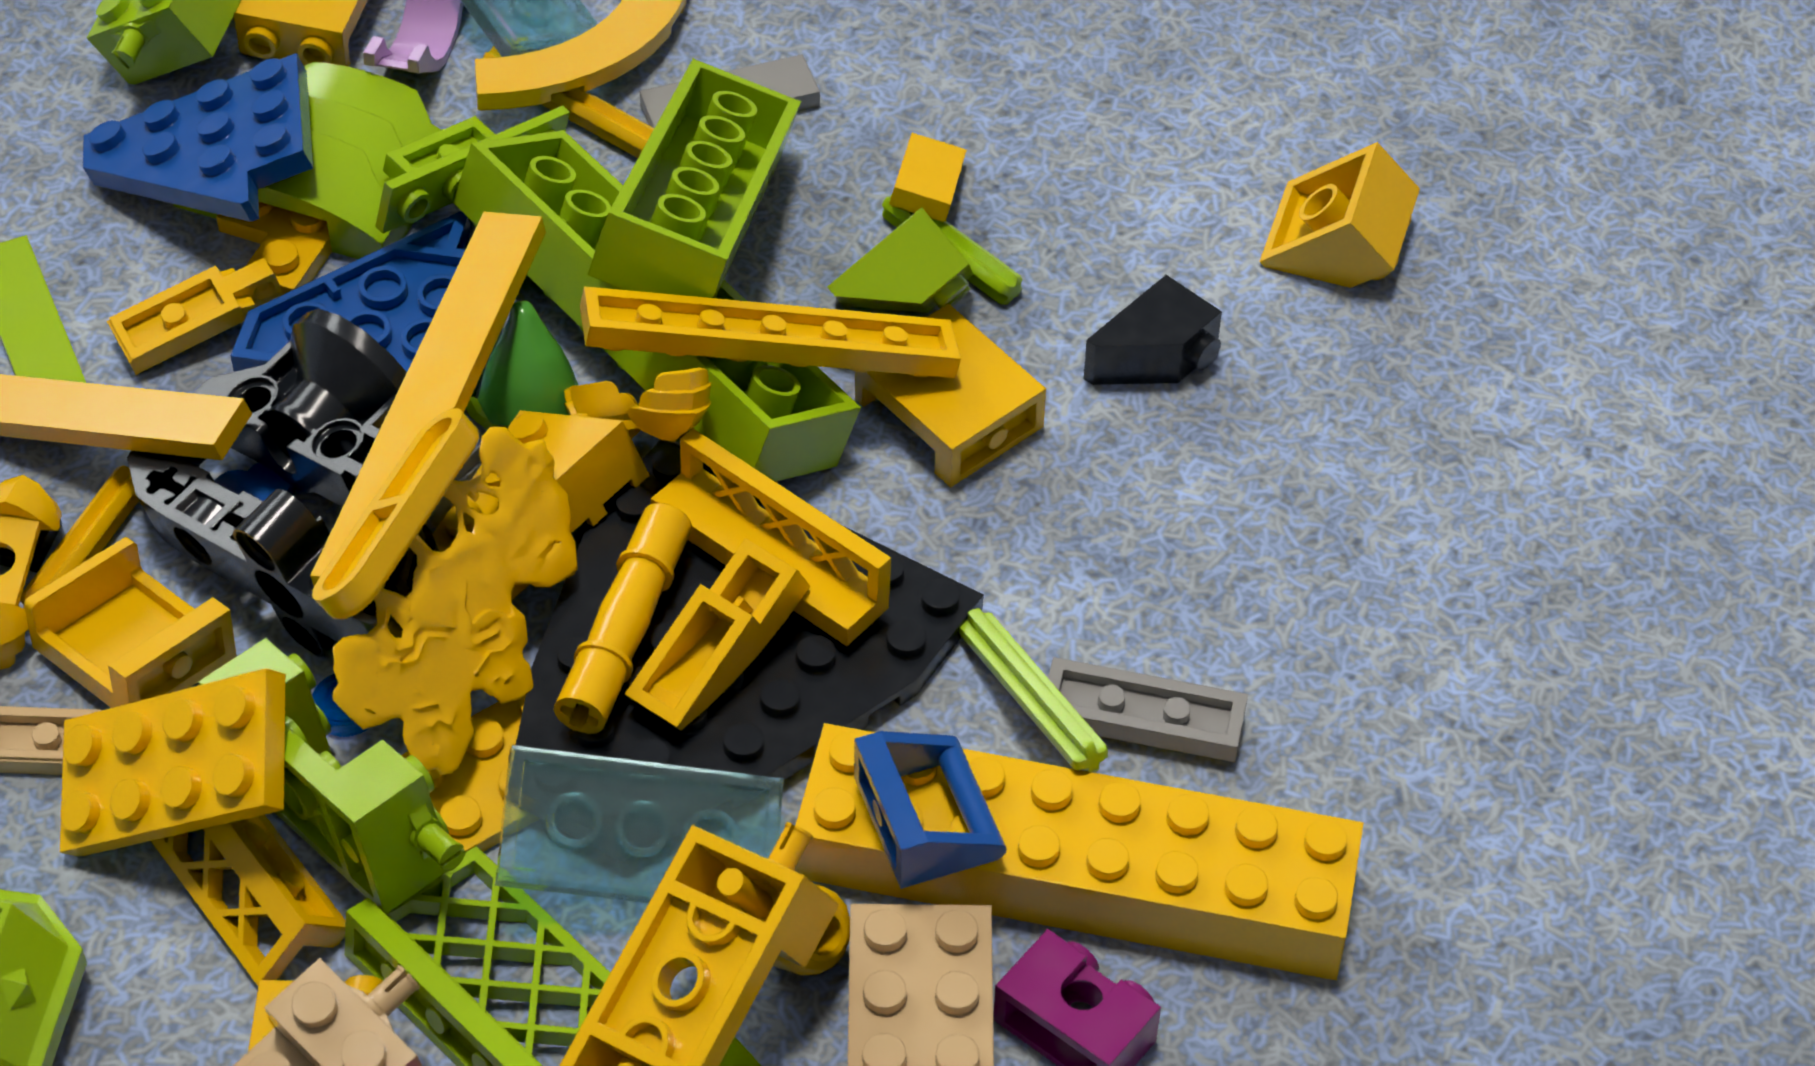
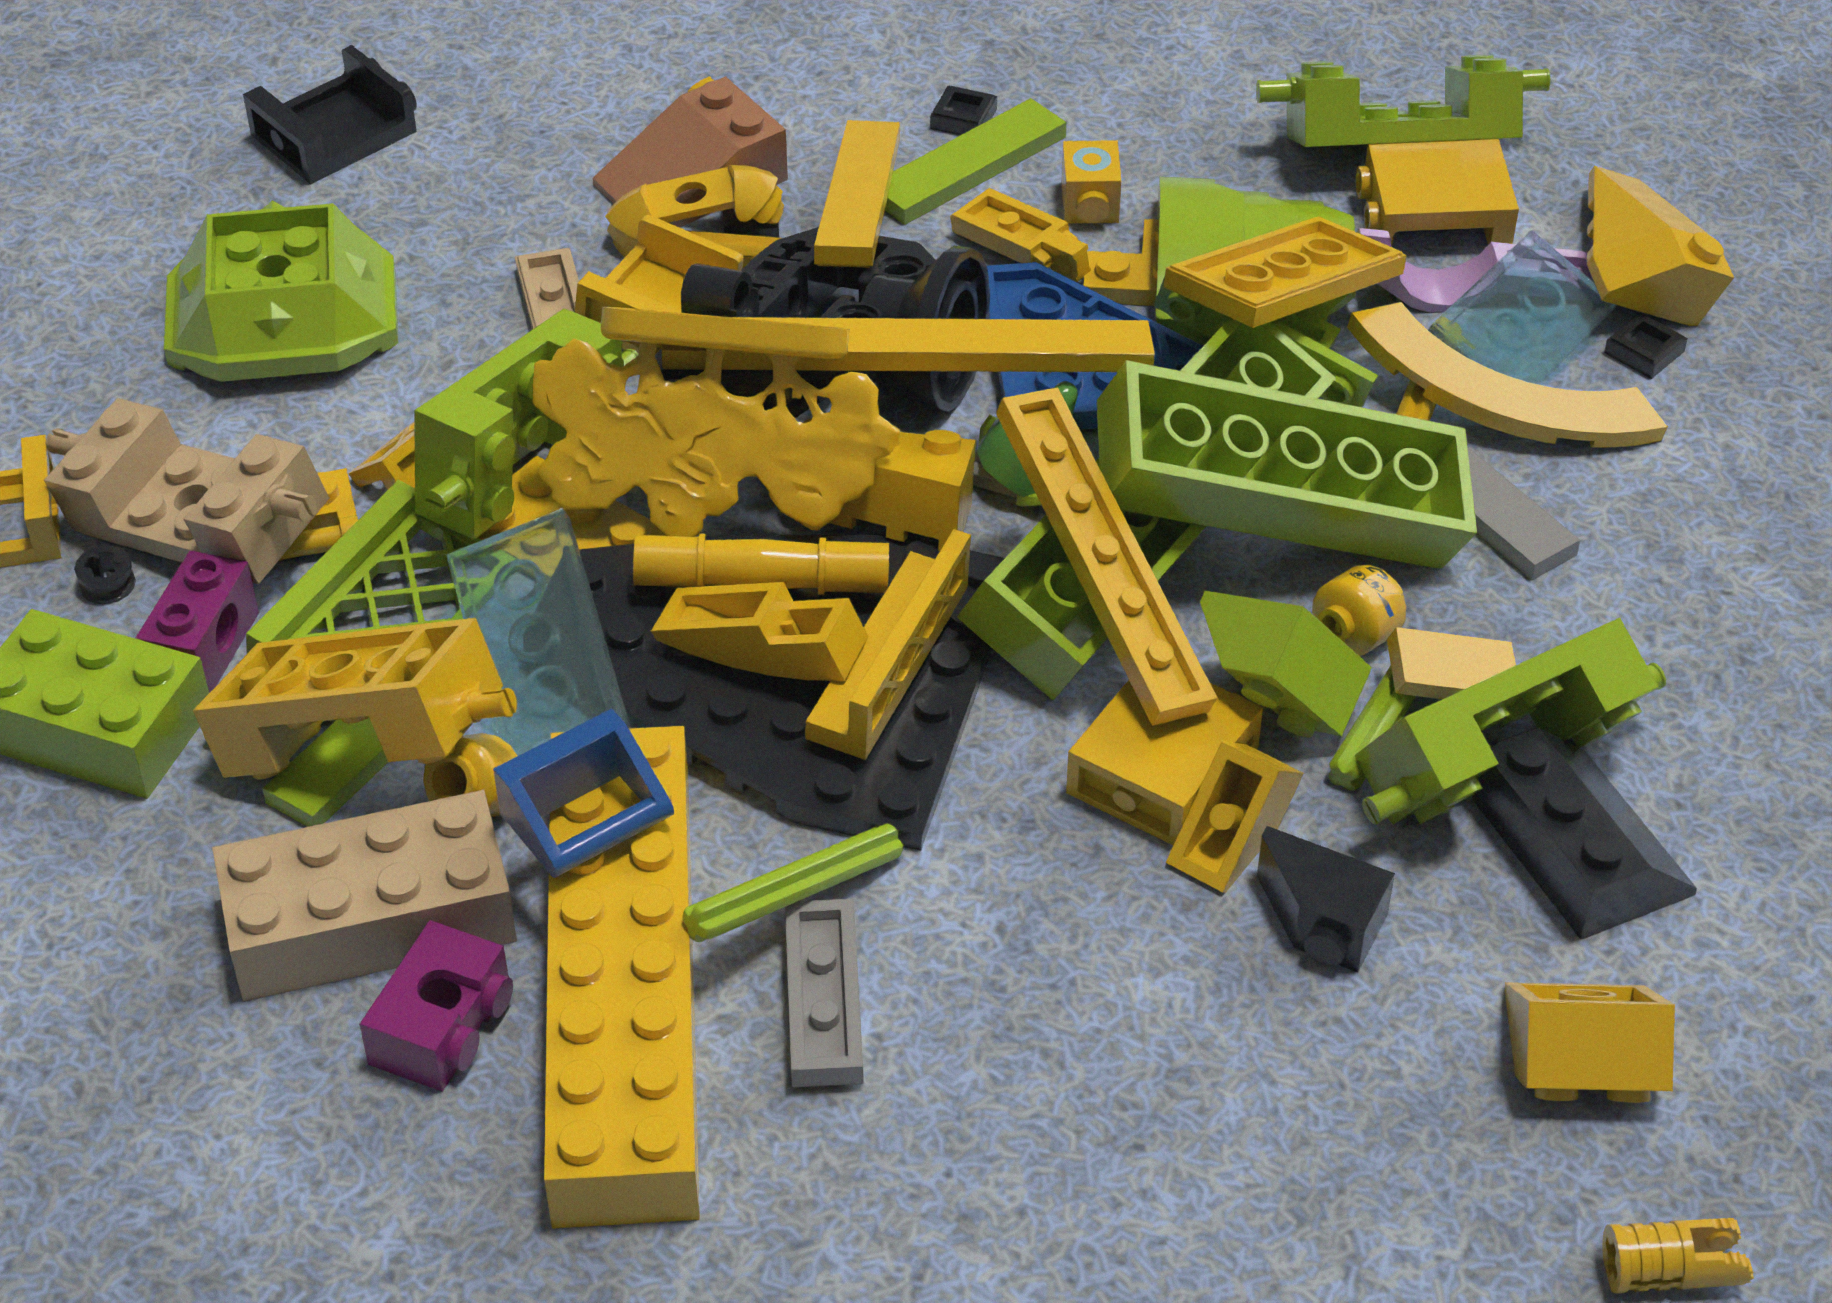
camera: 75 degrees right, 5 degrees down
(142, 238) = (1091, 181): none -> yellow brick
(174, 763) = (480, 334): yellow plate -> none
(211, 144) = (1203, 173): blue wing -> none
(435, 108) = (1284, 271): none -> yellow tile
(663, 411) = (996, 506): yellow piece -> none
(831, 213) = (1361, 607): none -> yellow head
(1033, 190) = (1440, 751): none -> lime brick
(1045, 348) = (1230, 813): none -> yellow slope
(1135, 168) = (1577, 834): none -> black slope
(1555, 249) = (1674, 1255): none -> yellow hinge

